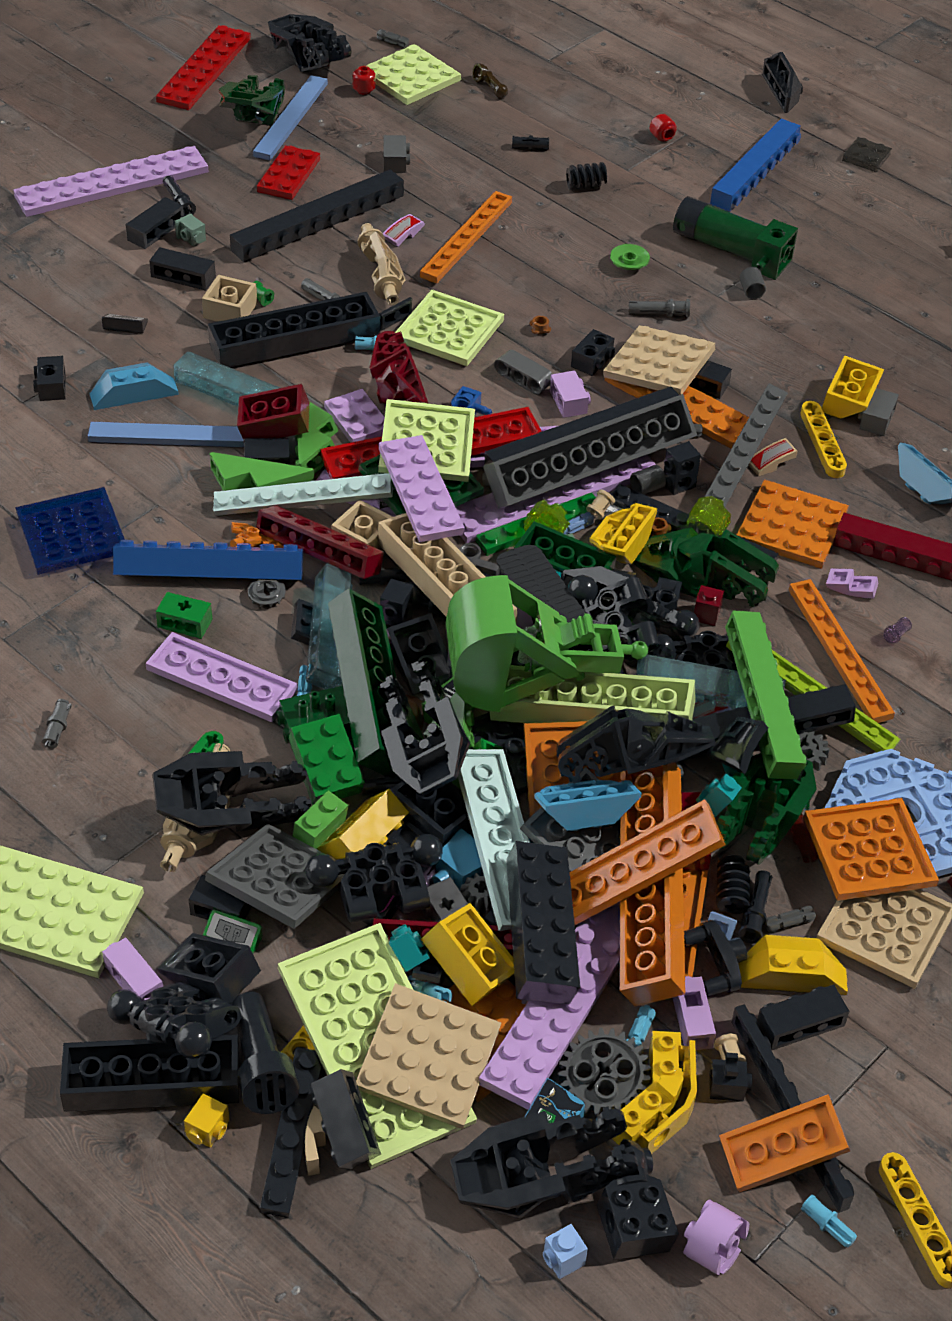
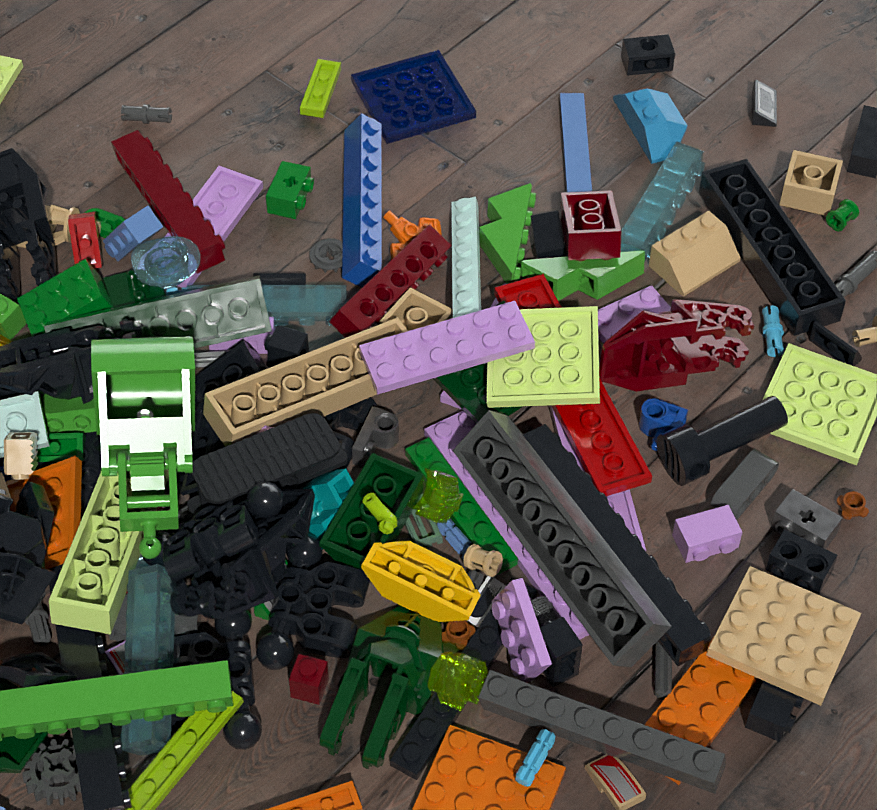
camera: 90 degrees right, 5 degrees up
(46, 593) = (320, 88): none -> lime plate
(194, 693) = (167, 197): none -> dark red brick
(245, 739) = (85, 238): none -> red brick
(249, 706) = (131, 233): none -> medium blue brick
(288, 369) = (694, 254): none -> tan slope
(296, 673) = (165, 261): none -> clear light blue hat
(502, 387) = (688, 452): none -> black piece
(528, 754) = (20, 454): none -> tan brick
(557, 346) = (806, 519): none -> flat silver brick
(575, 541) = (384, 516): none -> lime arm
(671, 479) = (520, 631): none -> lavender plate
(765, 486) = (535, 758): none -> medium azure axle

